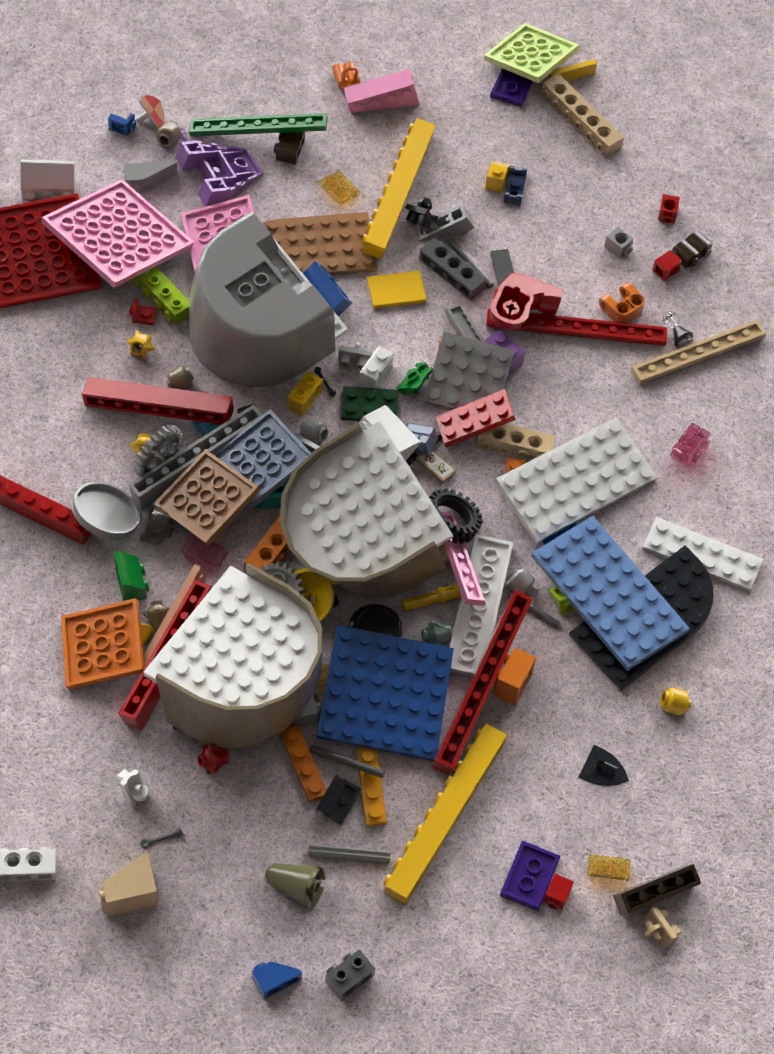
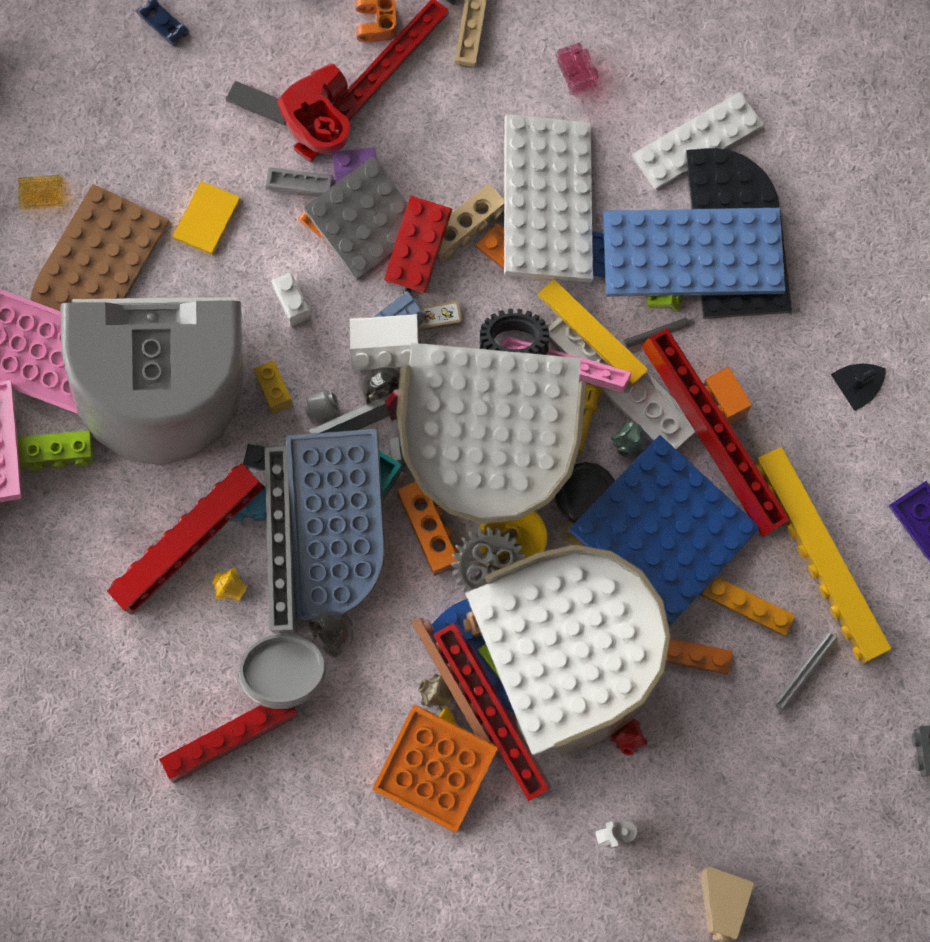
camera: 50 degrees left, 15 degrees up
(130, 576) = (375, 693): green slope -> none
(142, 314) = (60, 486): red bracket -> none
(144, 348) = (100, 513): yellow rock -> none
(145, 843) = (674, 858): dark grey hinge -> none
(158, 449) = (254, 577): light grey gear -> none
(180, 378) = (169, 499): dark tan head -> none
(207, 497) = (342, 562): medium nougat plate -> none
(209, 556) = (393, 602): clear pink brick -> none
(274, 977) = (892, 823): blue slope -> none
(297, 881) = (809, 740): olive cone -> none
(317, 370) = (249, 357): black hinge -> none
(327, 287) = (162, 284): blue brick -> none
(338, 799) = (745, 645): black plate -> none
(347, 761) = (712, 611): dark grey bar -> none
(353, 354) = (258, 308): light grey hips -> none
(362, 401) = (323, 333): dark green plate -> none
(398, 189) = (88, 134): yellow brick -> none
(415, 379) = (328, 271): green piece -> none
(421, 214) = (129, 139): black hips -> none
(448, 224) = (164, 120): light grey slope -> none
(452, 268) = (214, 157): dark grey brick -> none
(466, 258) = (222, 127): dark grey bar -> none
(497, 176) = (139, 30): yellow slope -> none
(498, 563) = (591, 331): none -> yellow tile
(521, 581) = (623, 324): light grey head -> none
(675, 701) = (837, 272): yellow head -> none

